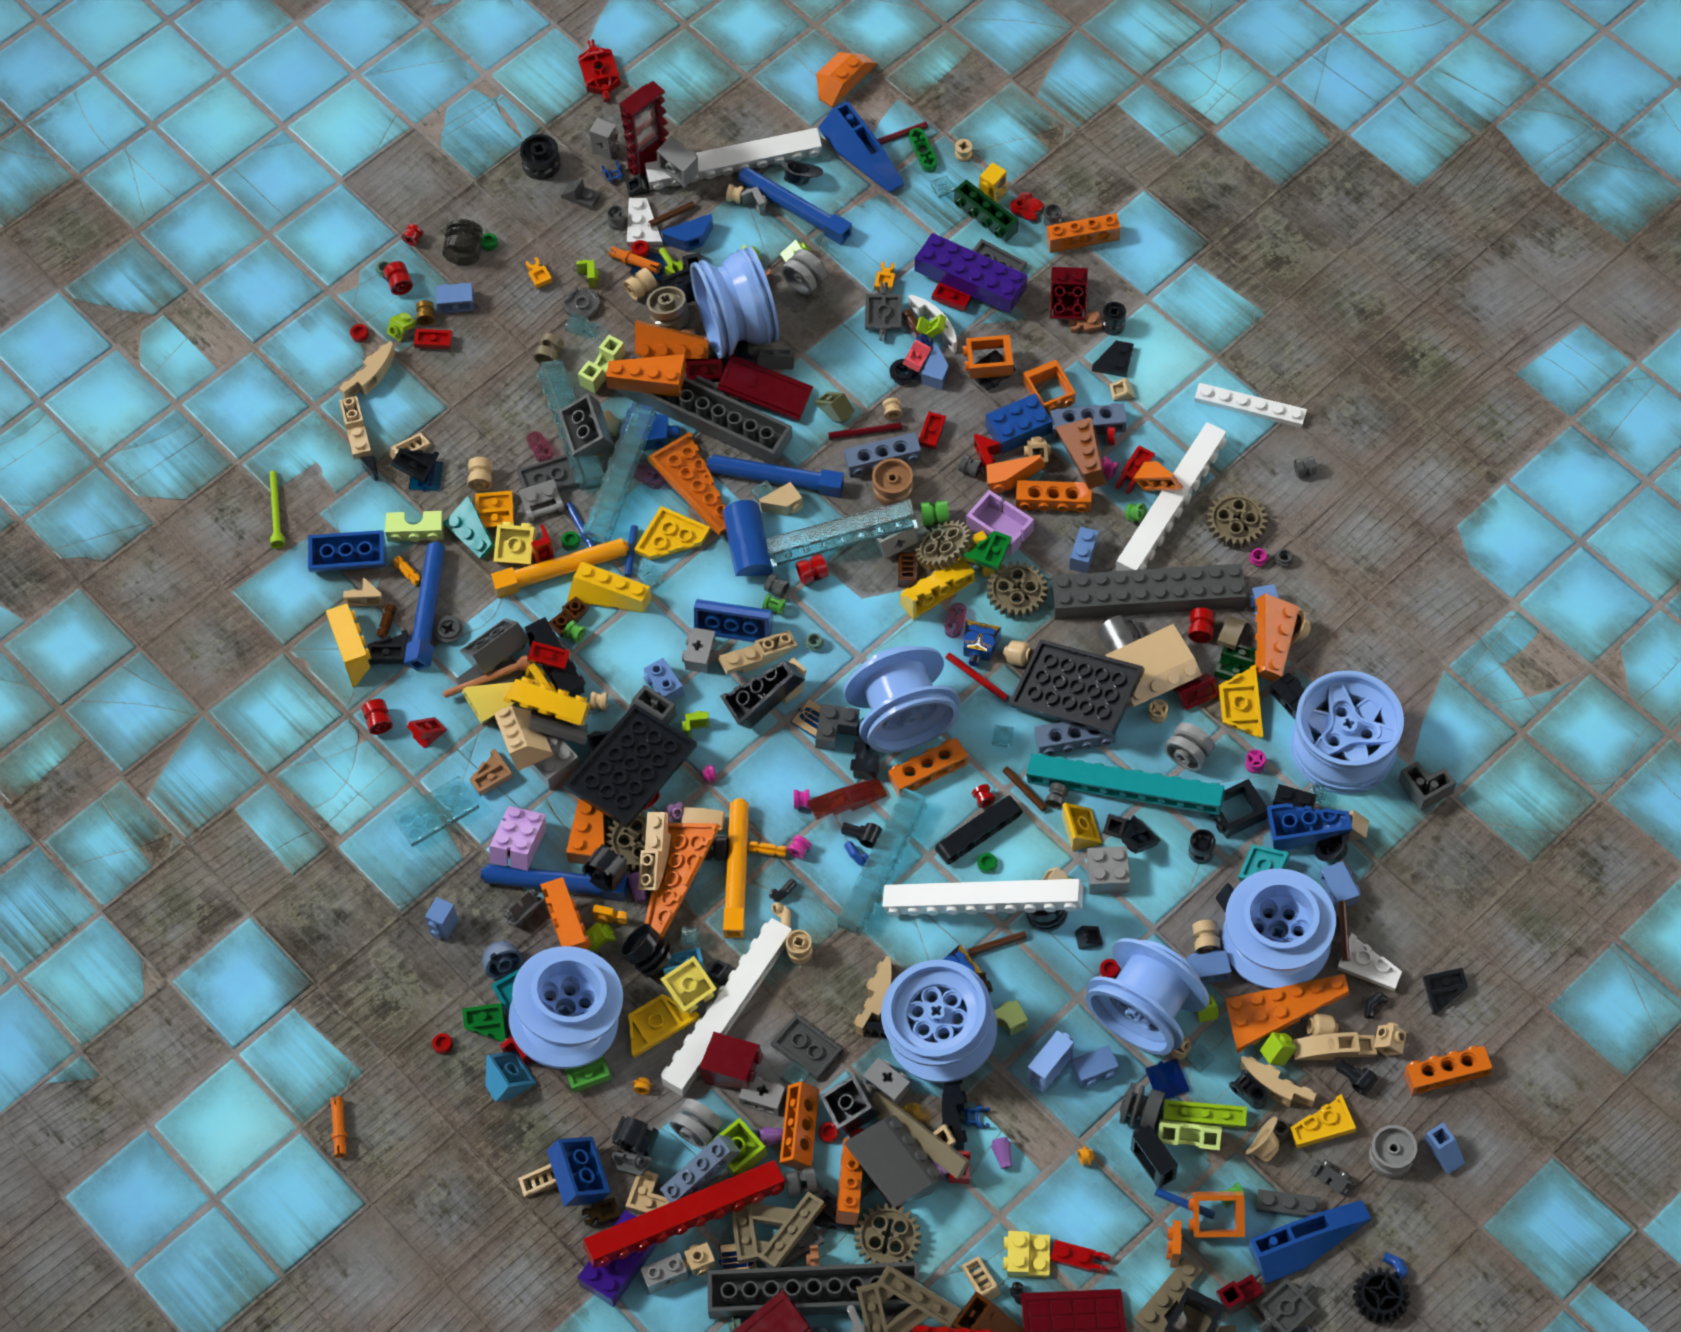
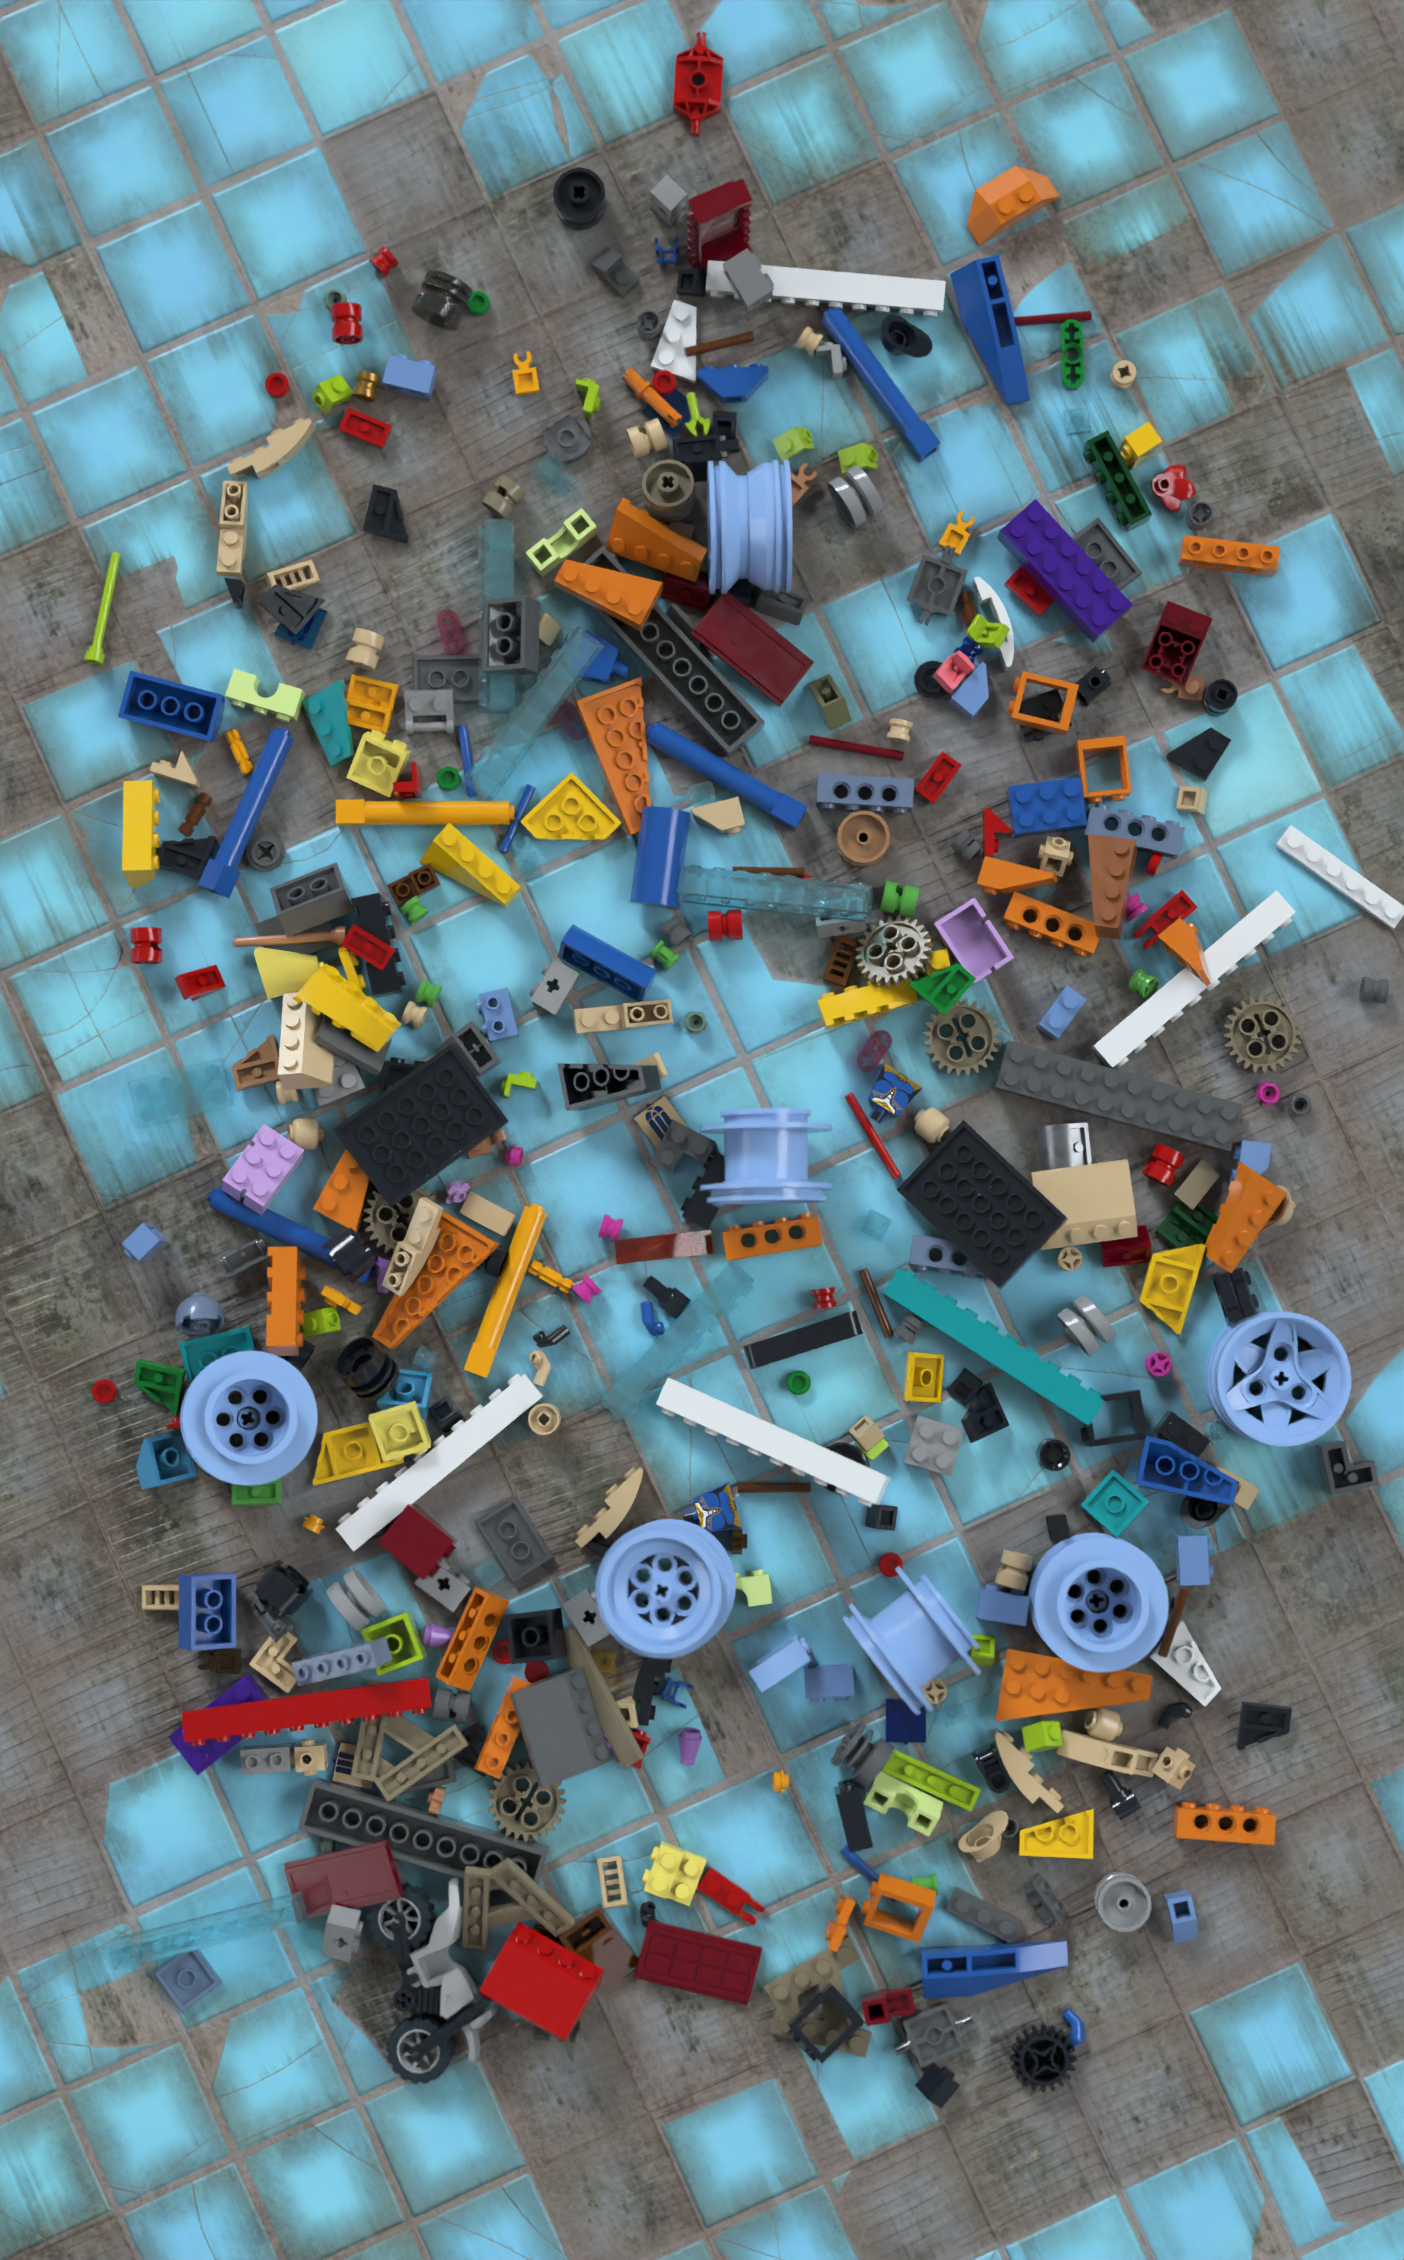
camera: 20 degrees right, 25 degrees up
(466, 388) = (384, 515): none -> black wing
(518, 783) = (286, 1095): none -> tan wheel
(543, 804) = (305, 1133): none -> tan head
(604, 683) = (428, 993): none -> bright green wheel
(683, 773) = (486, 1146): none -> nougat plate
(1021, 339) = (1093, 685): none -> black brick

